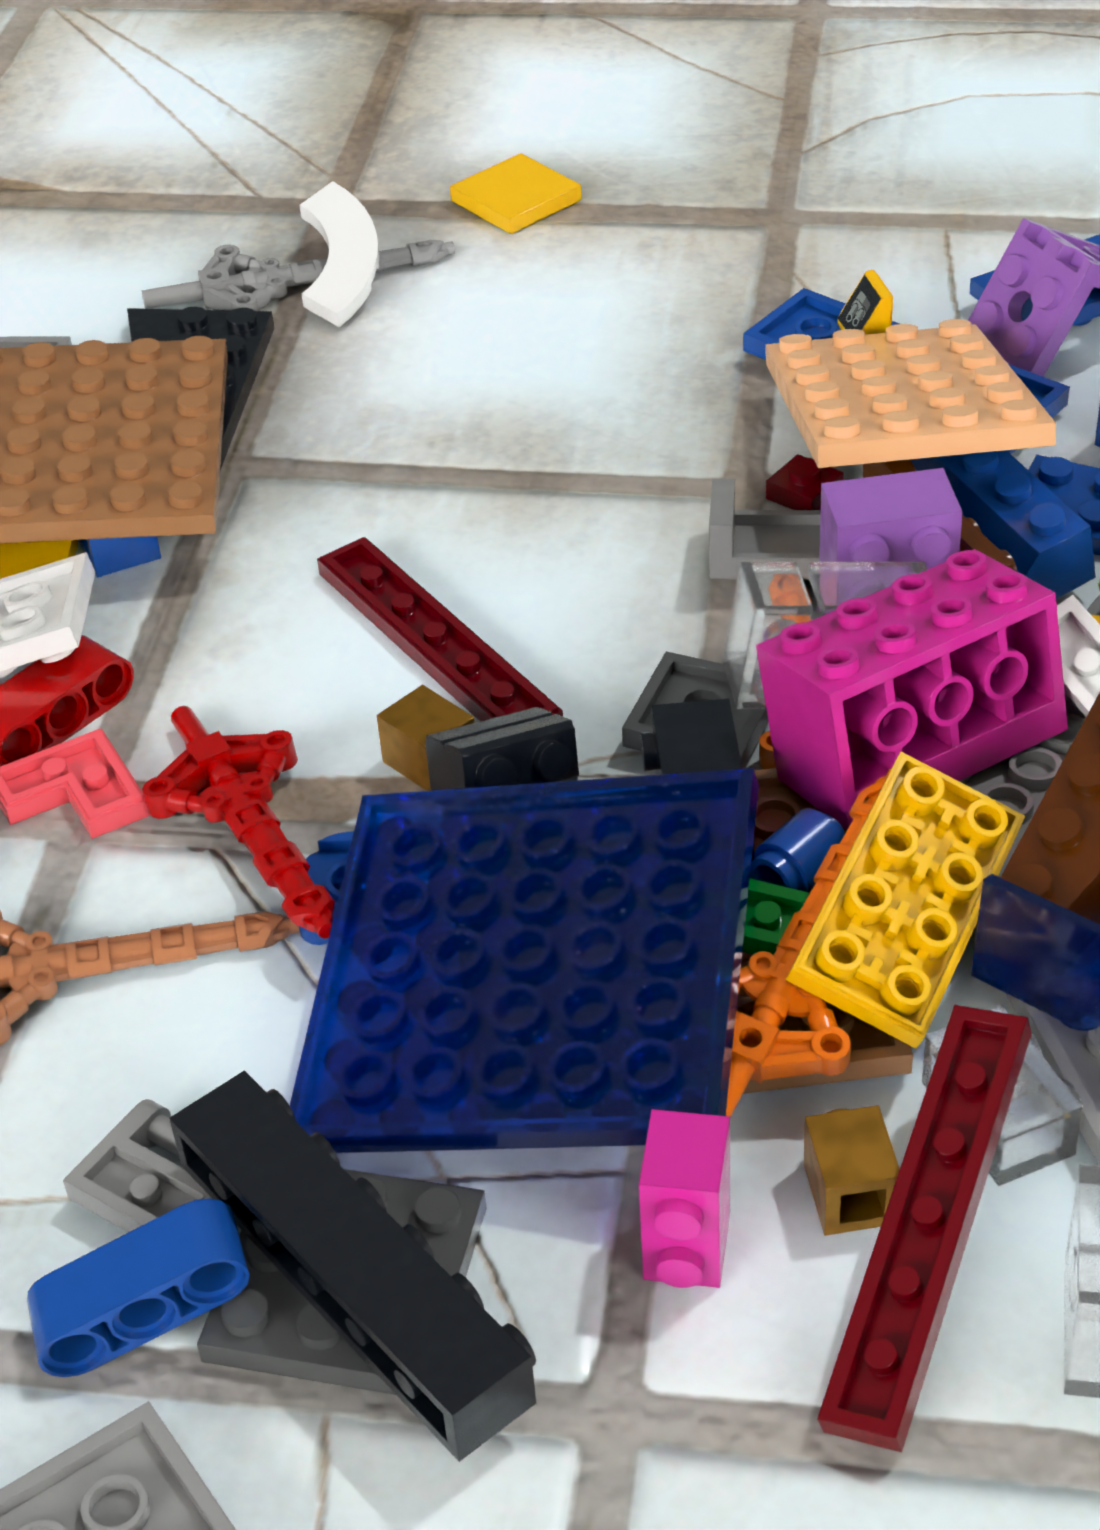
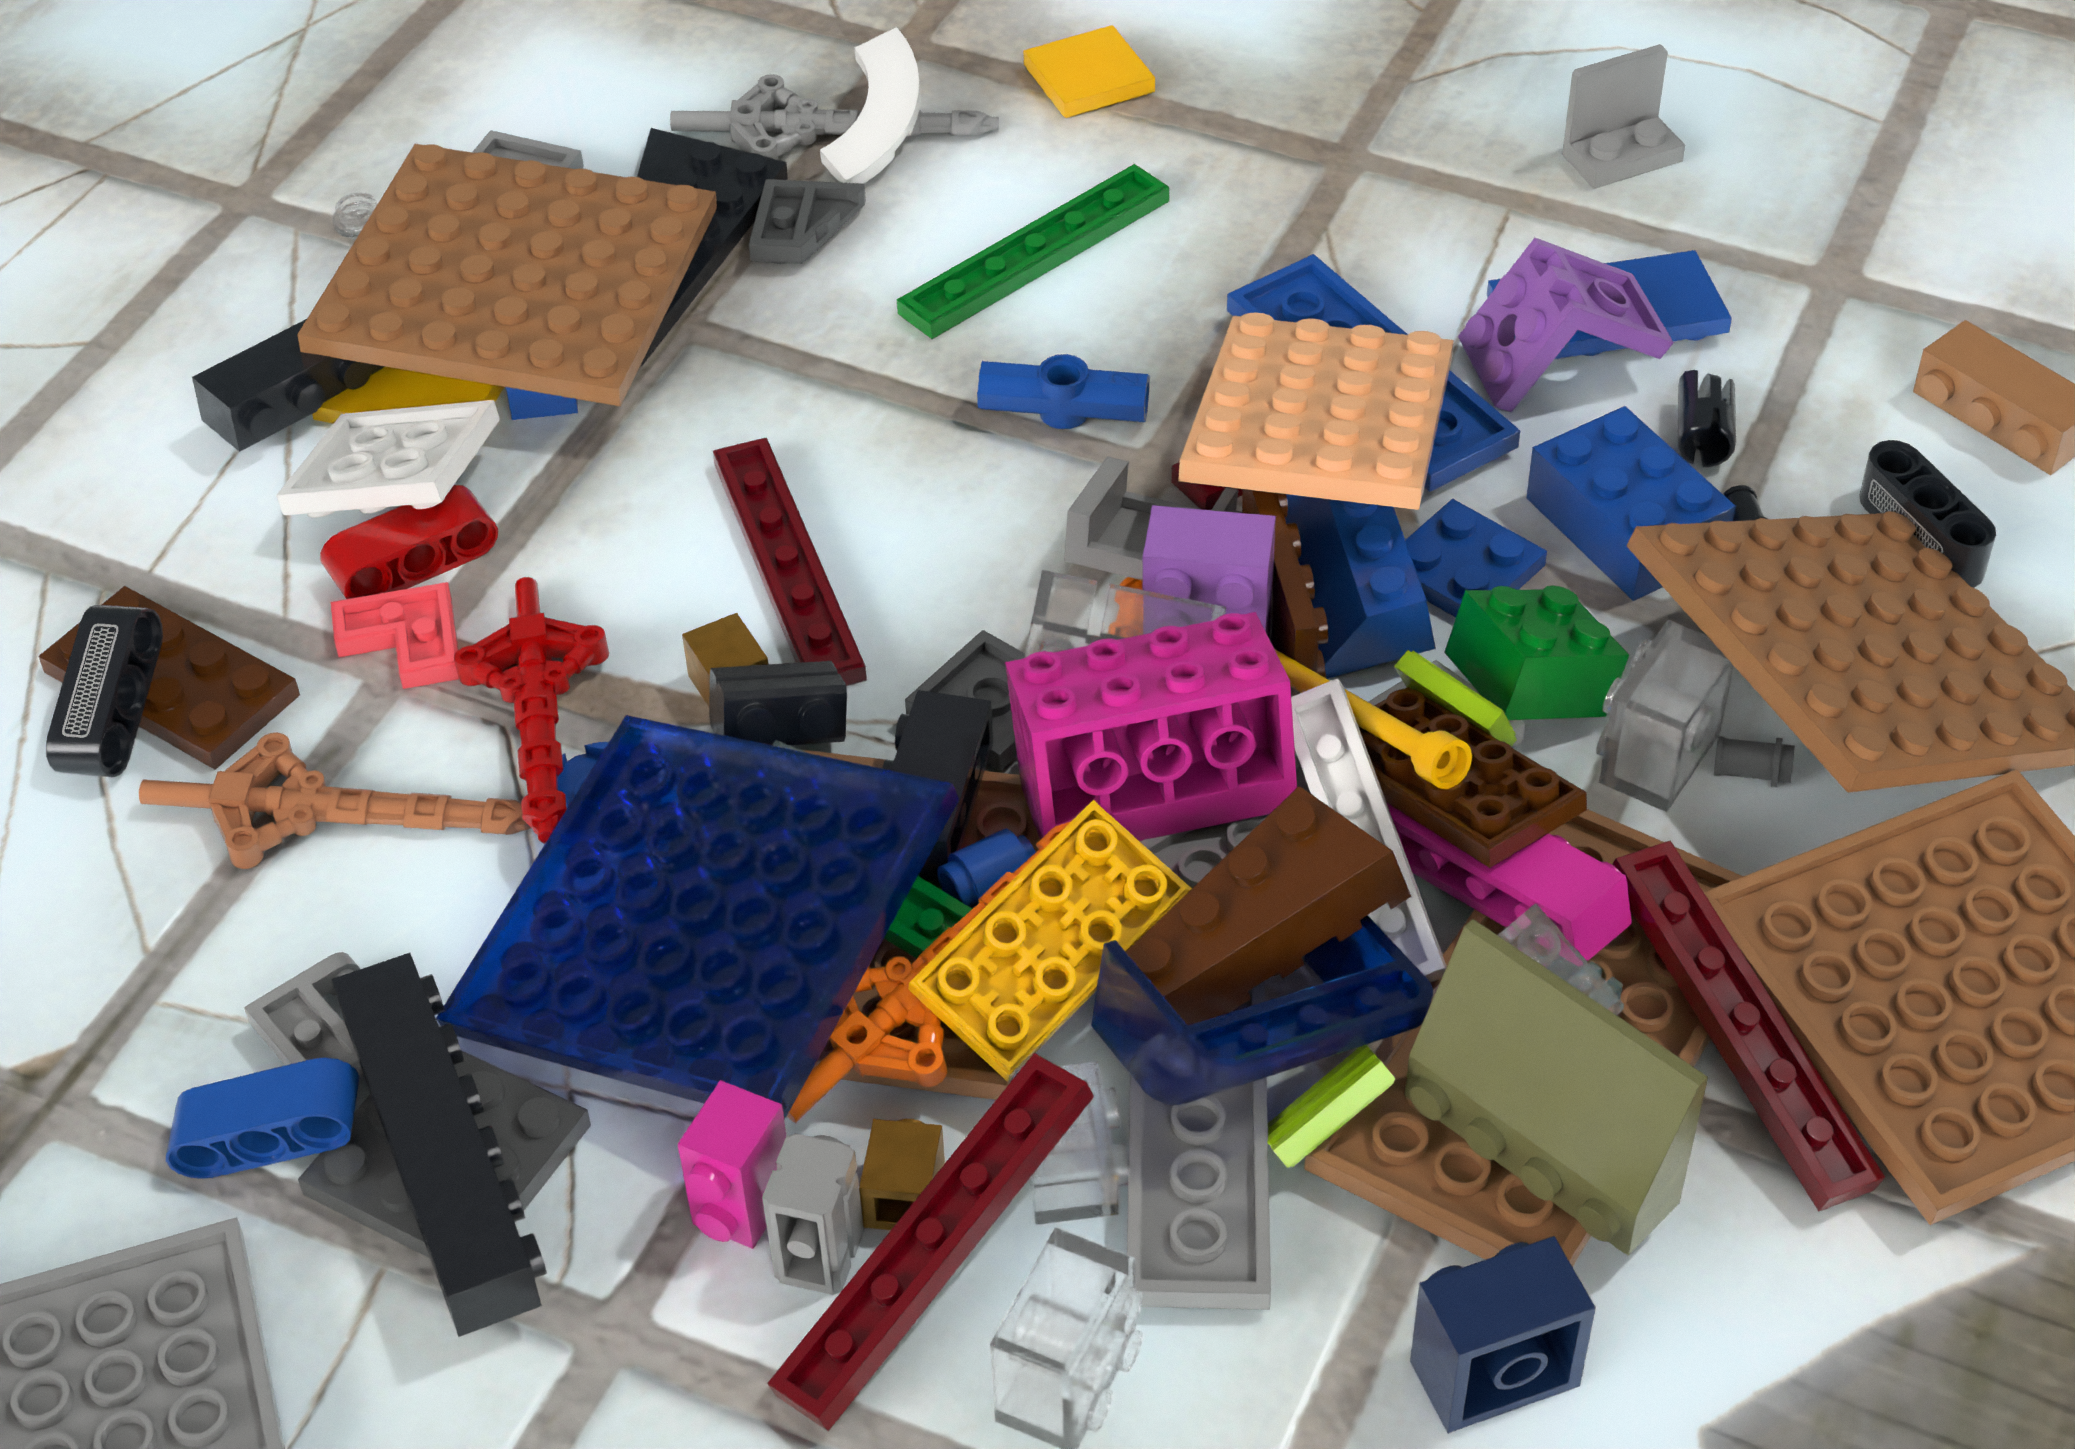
camera: 15 degrees right, 5 degrees up
(308, 352) = (800, 218): none -> dark grey wing
(536, 341) = (1032, 251): none -> green tile
(634, 440) = (1063, 391): none -> blue piece
(794, 1226) = (813, 1213): none -> light grey brick
(868, 306) = (1352, 298): slope -> none
(1005, 140) = (1615, 119): none -> light grey bracket

